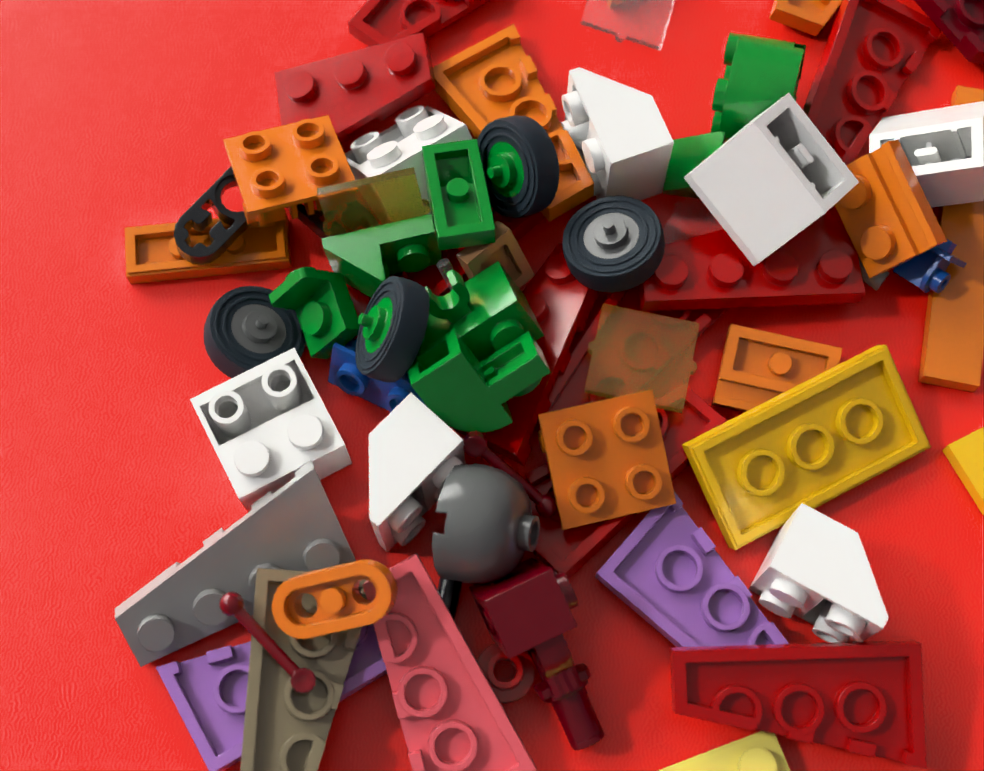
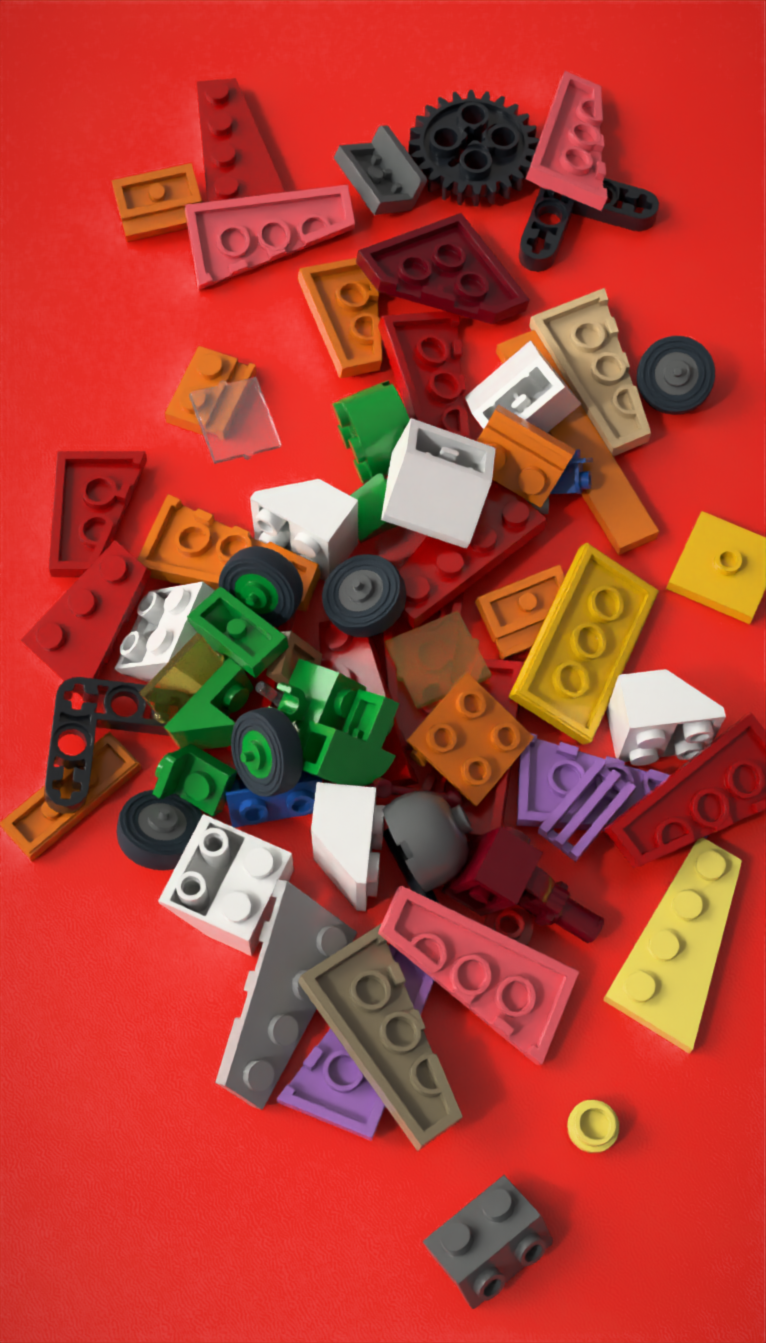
camera: 40 degrees left, 5 degrees down
(286, 167) = (97, 696): orange hinge -> none
(302, 679) = (389, 1024): dark red hinge -> none
(337, 599) = (374, 952): orange plate -> none
(720, 602) = (610, 779): none -> medium lavender tile

